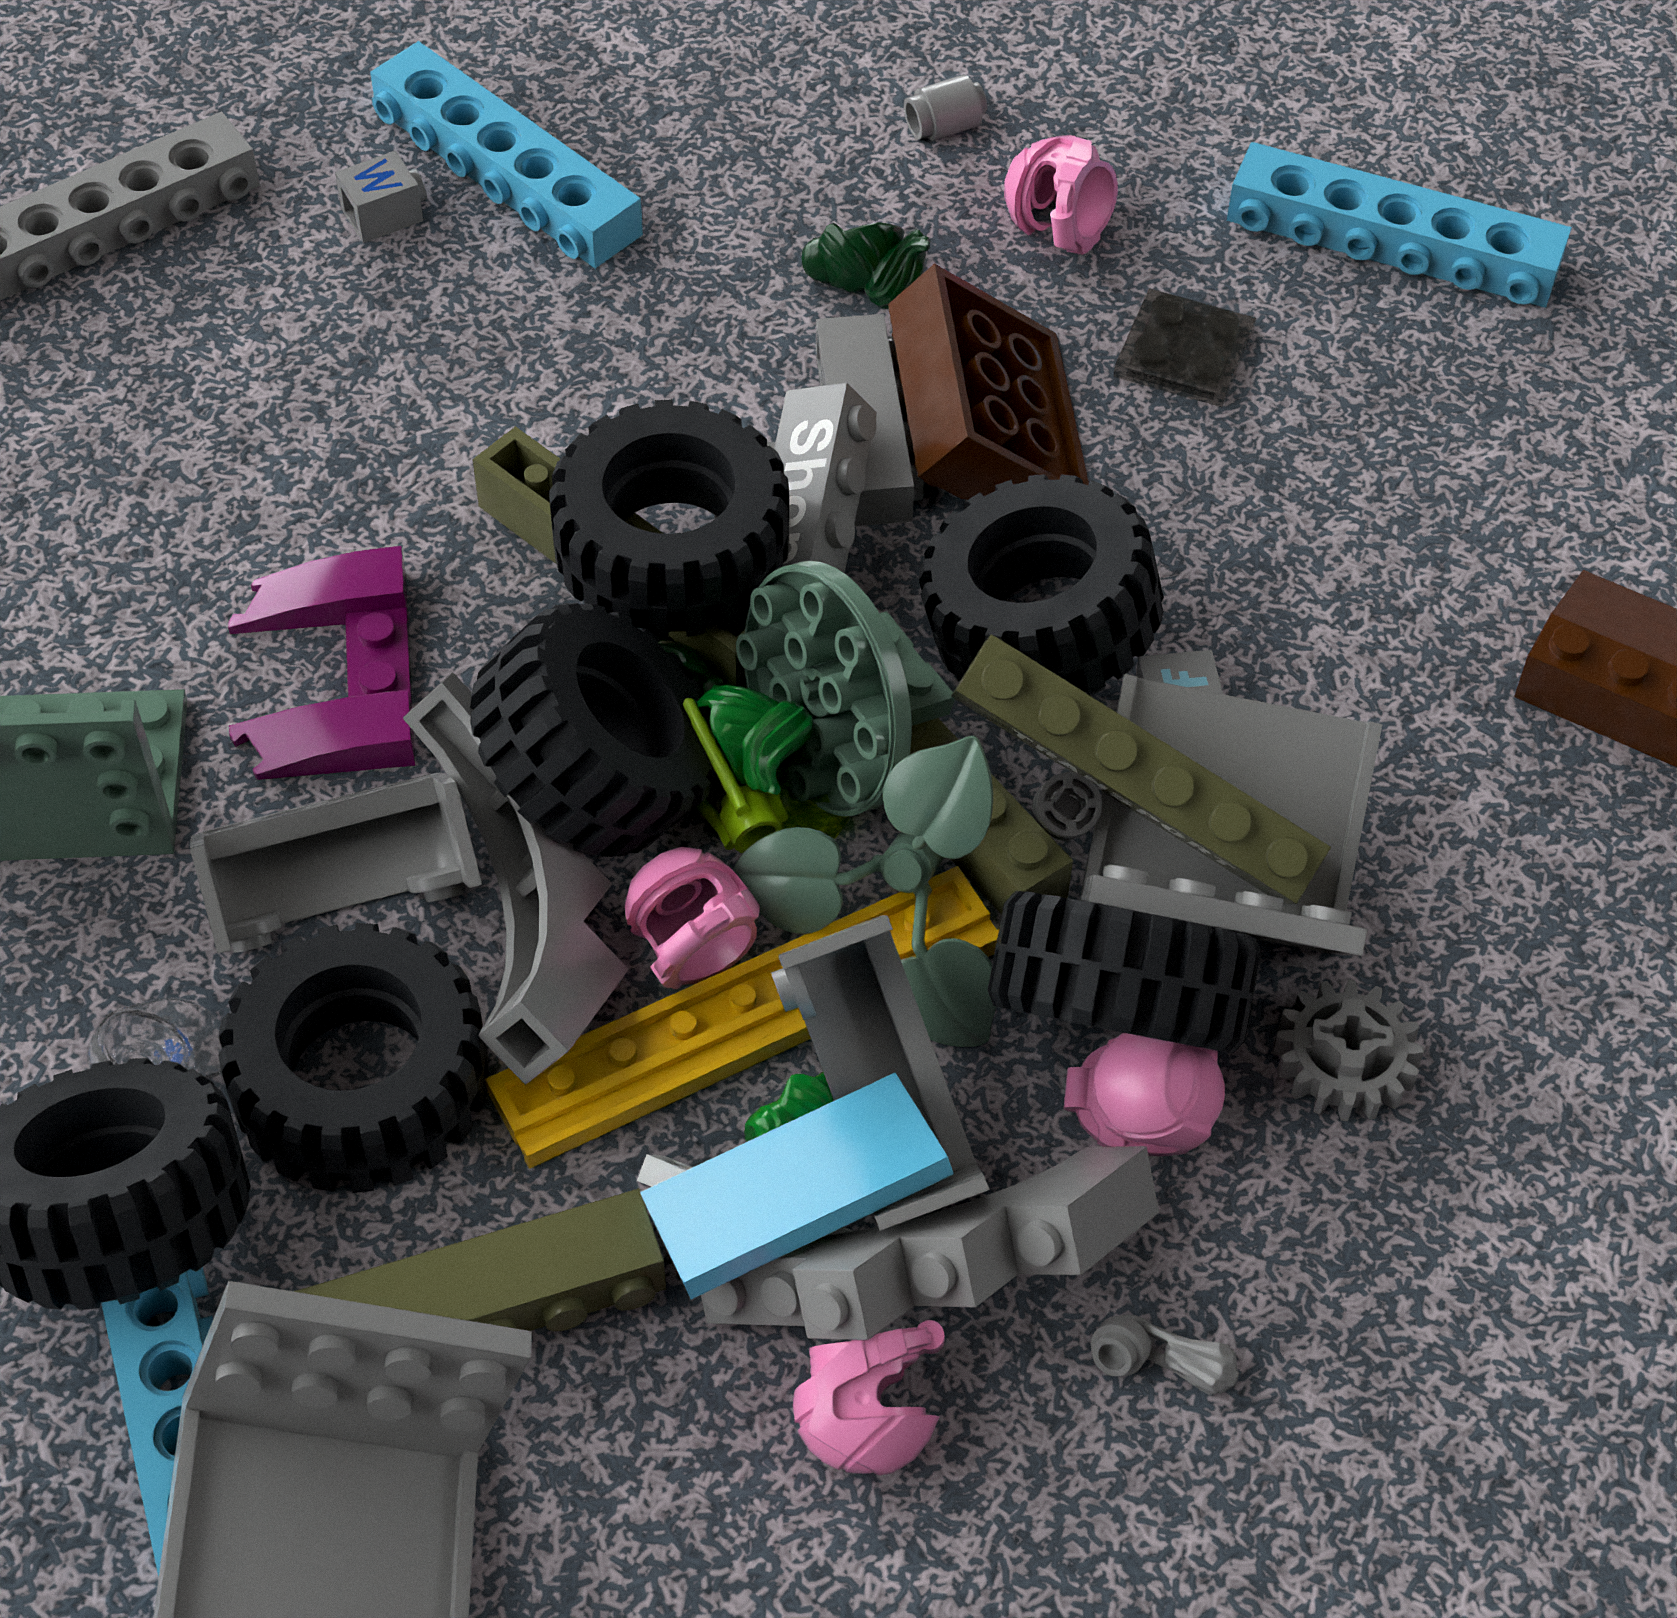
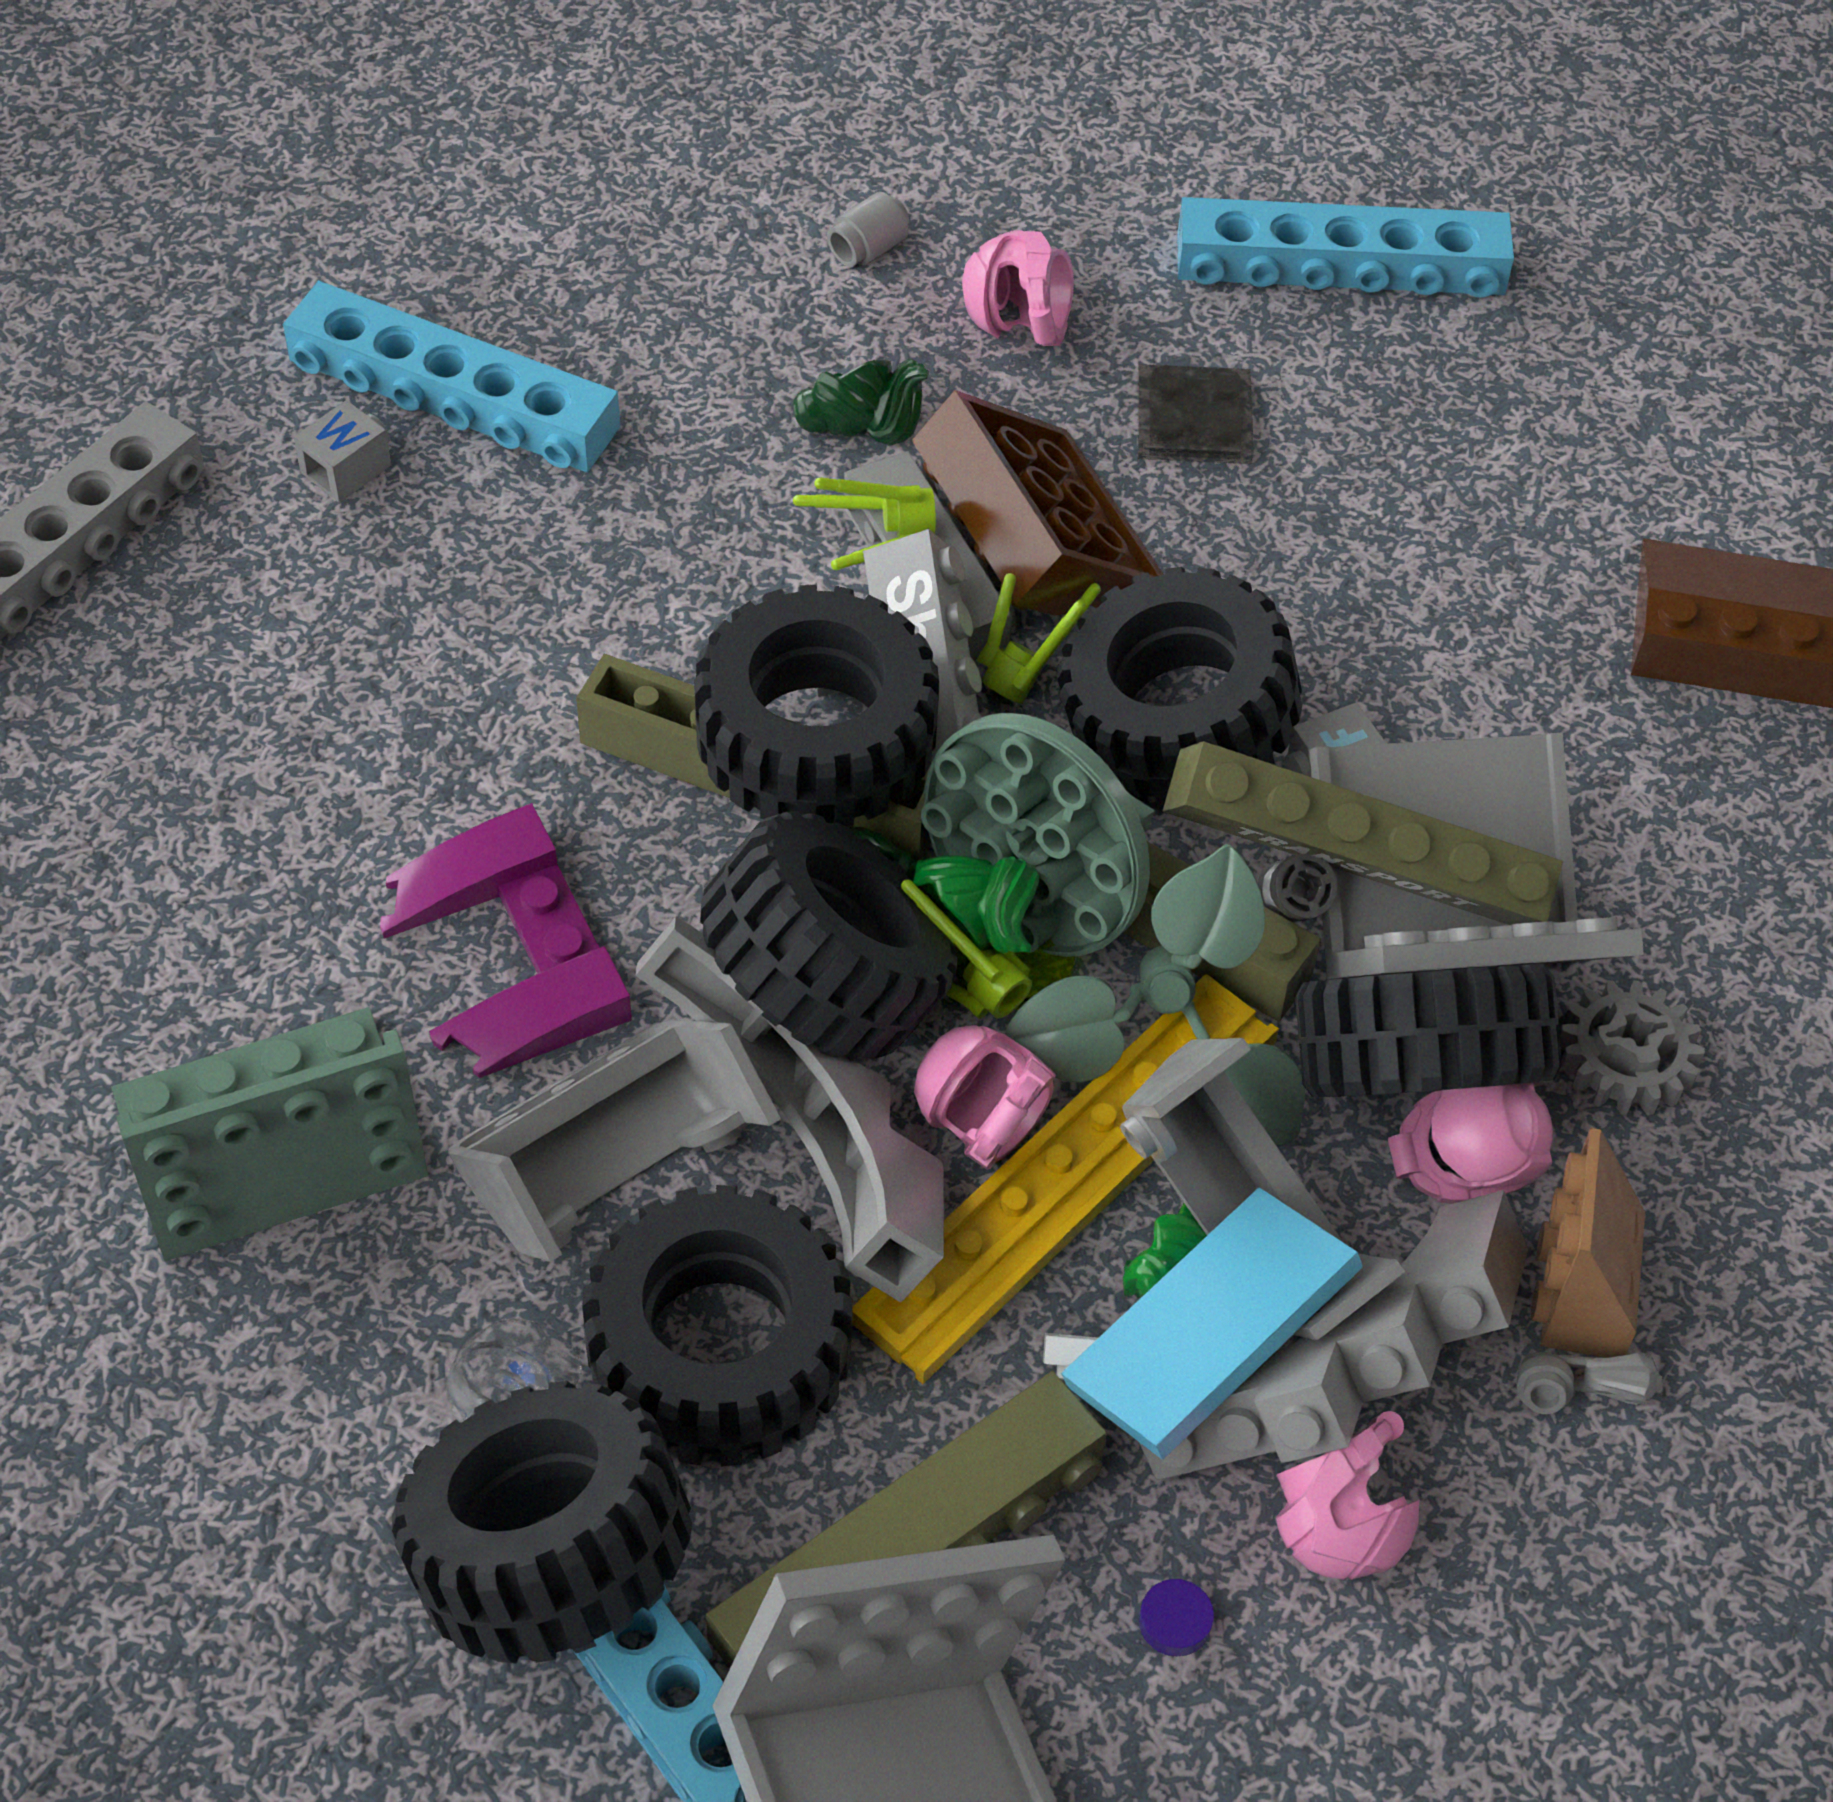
camera: 20 degrees left, 0 degrees up
(667, 1456) = (1176, 1617): none -> dark purple tile
(847, 359) = (904, 508): none -> lime plant
(905, 537) = (1016, 668): none -> lime plant
(1208, 1231) = (1590, 1256): none -> medium nougat slope

